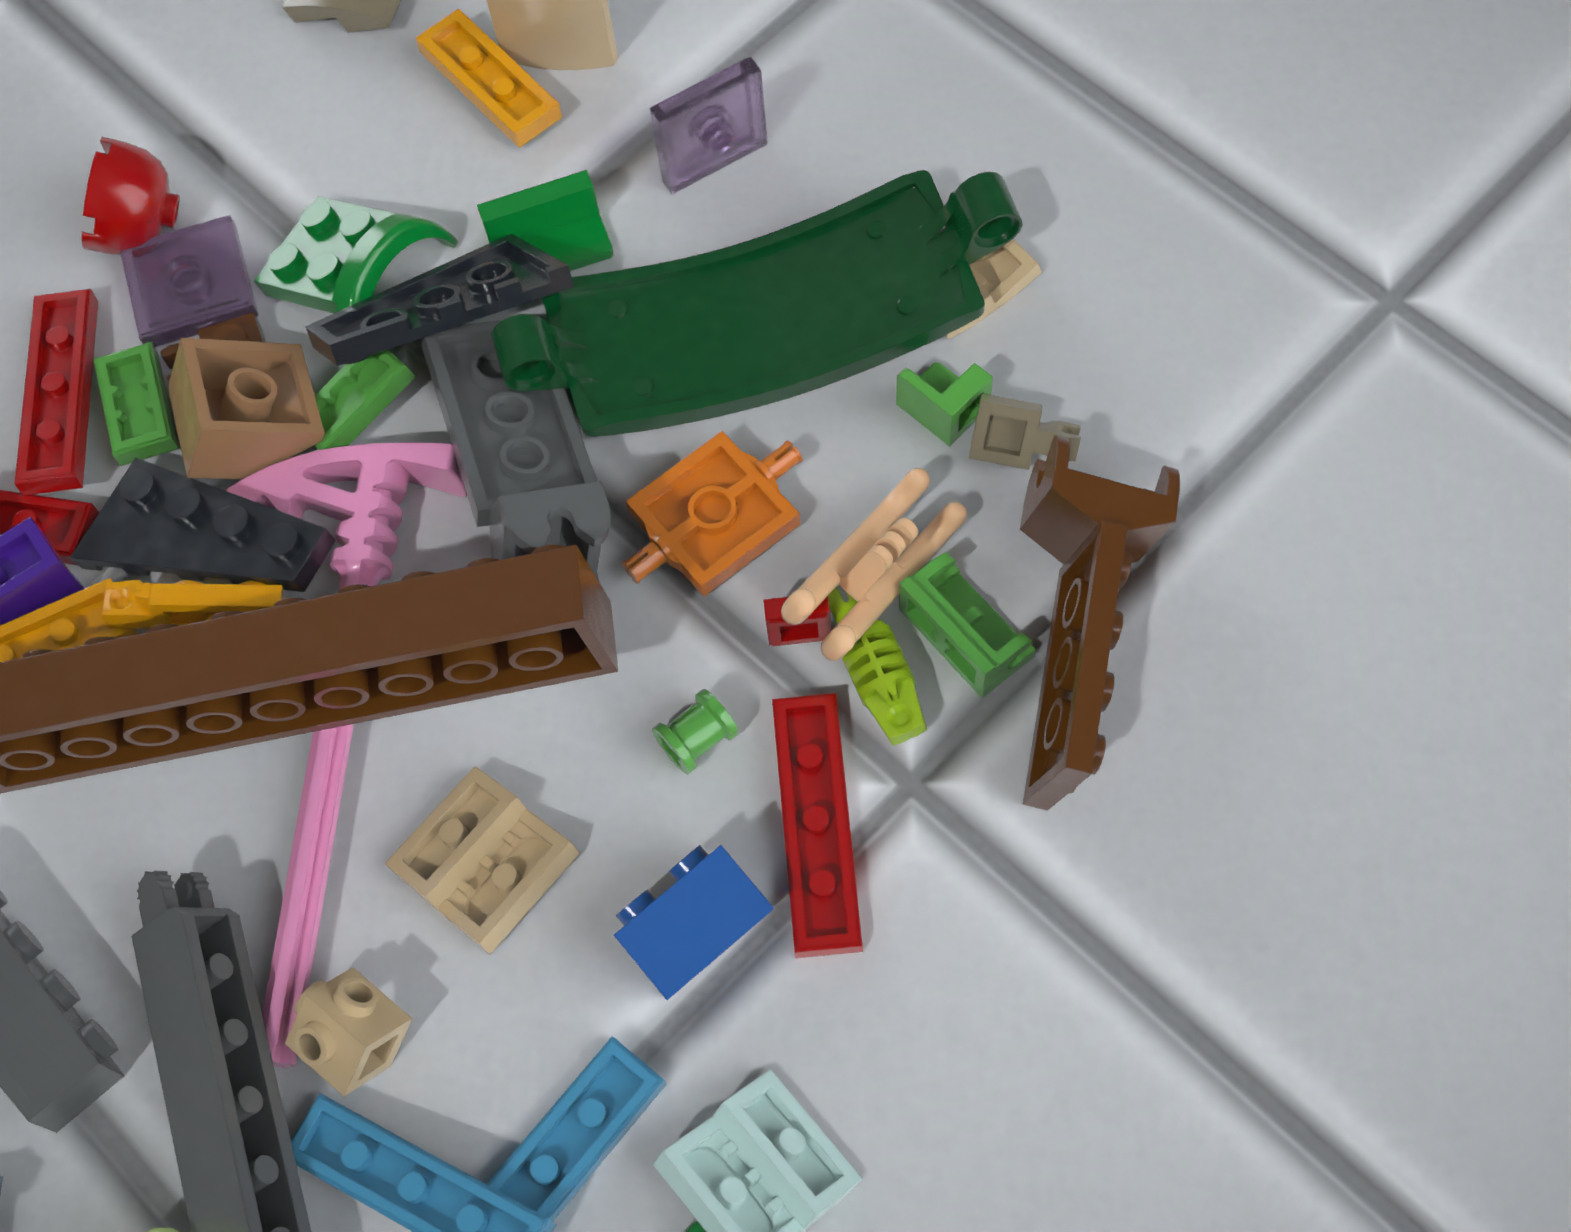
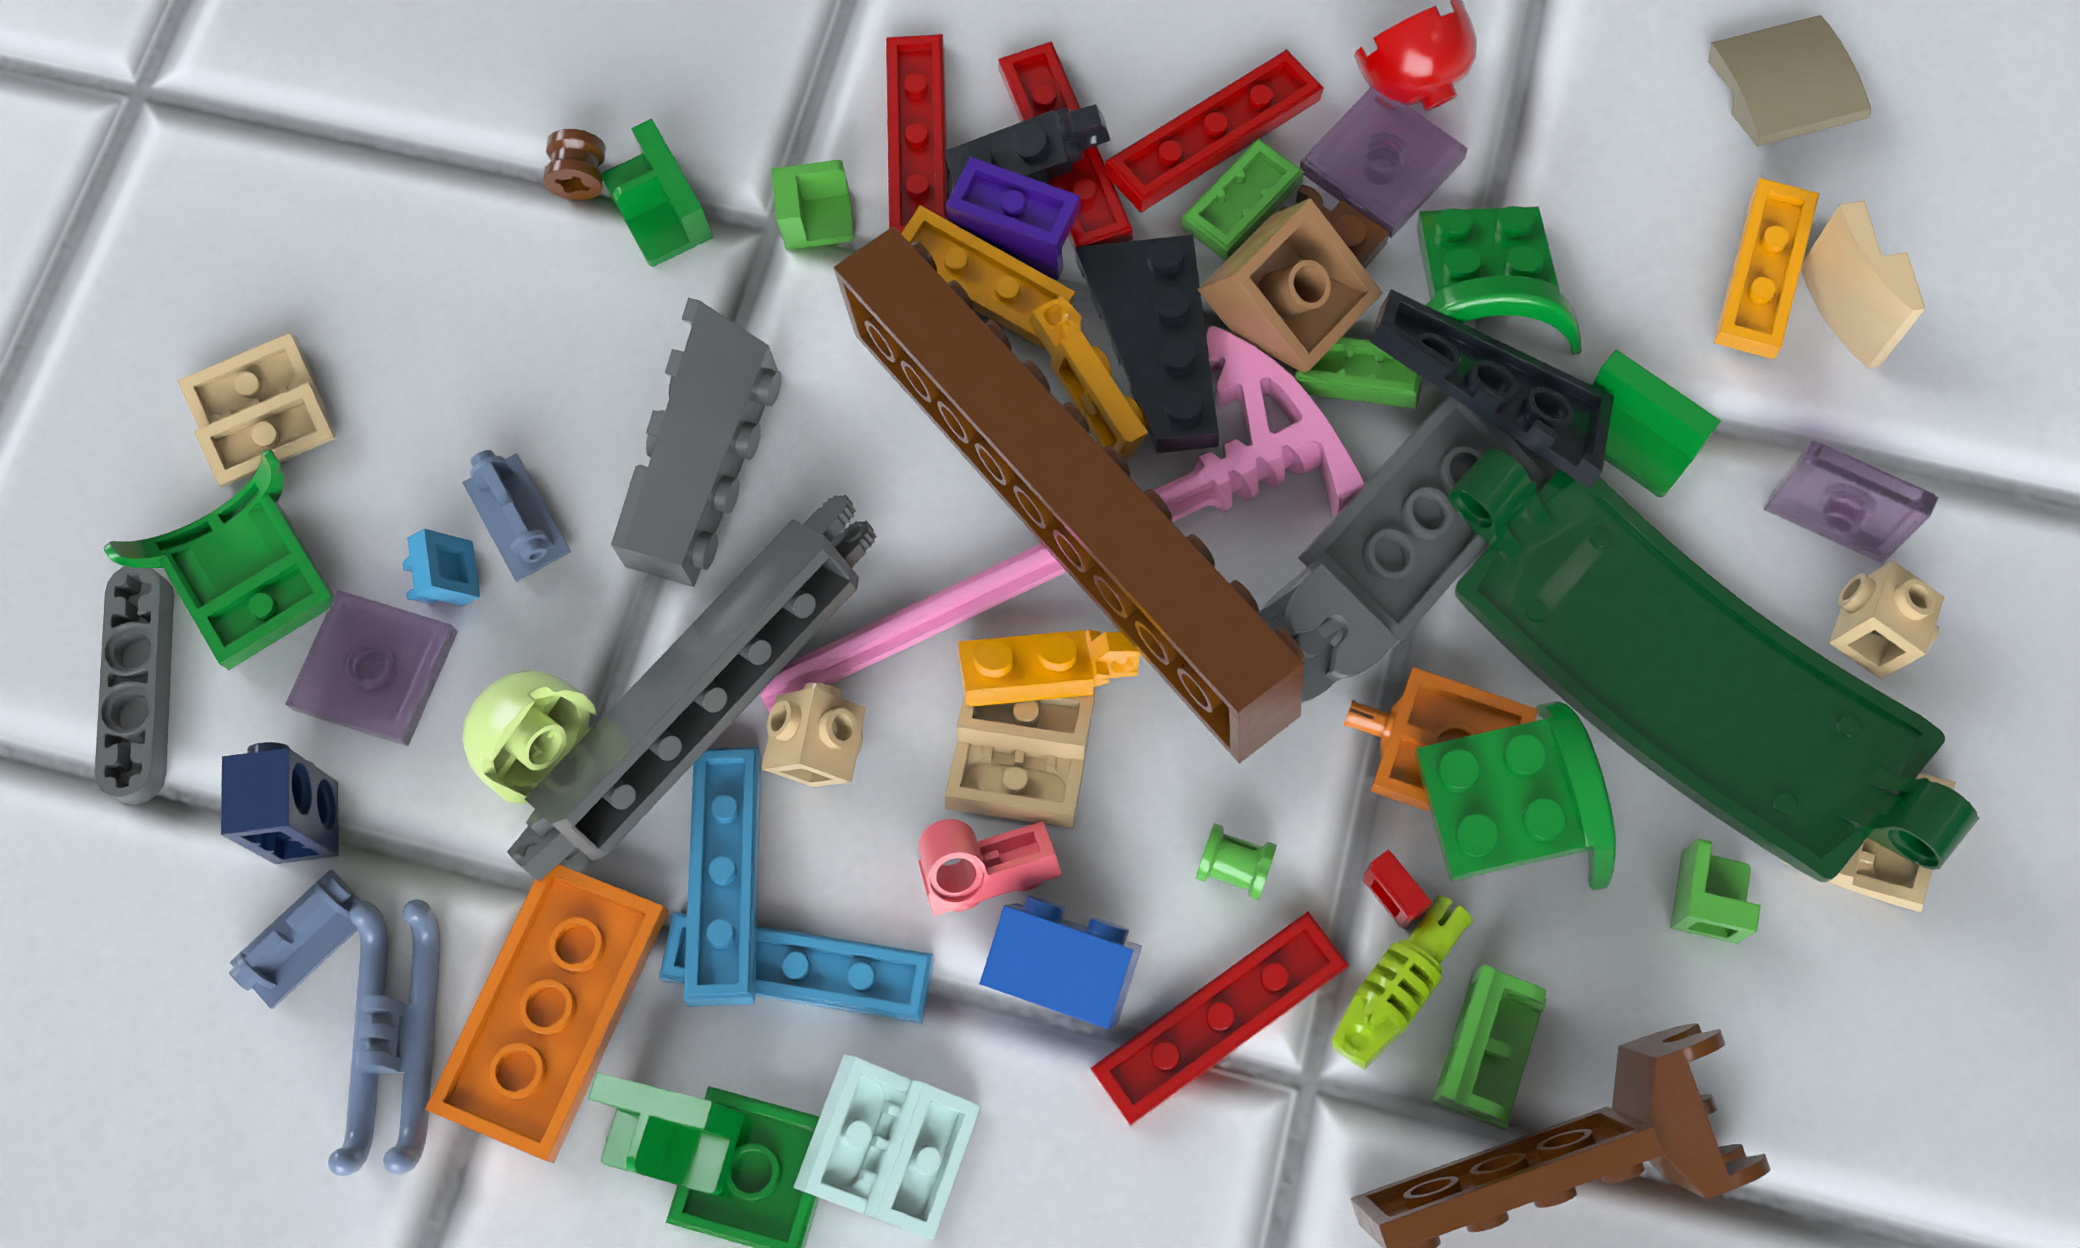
camera: 60 degrees right, 5 degrees up
(421, 794) = (1043, 665): none -> light orange hinge
(567, 943) = (988, 867): none -> coral plate
(784, 480) = (1520, 797): none -> green piece
(813, 157) = (1886, 619): none -> tan brick
(874, 563) = (1480, 931): light nougat piece -> none
(1011, 431) = (1719, 982): dark tan plate -> none

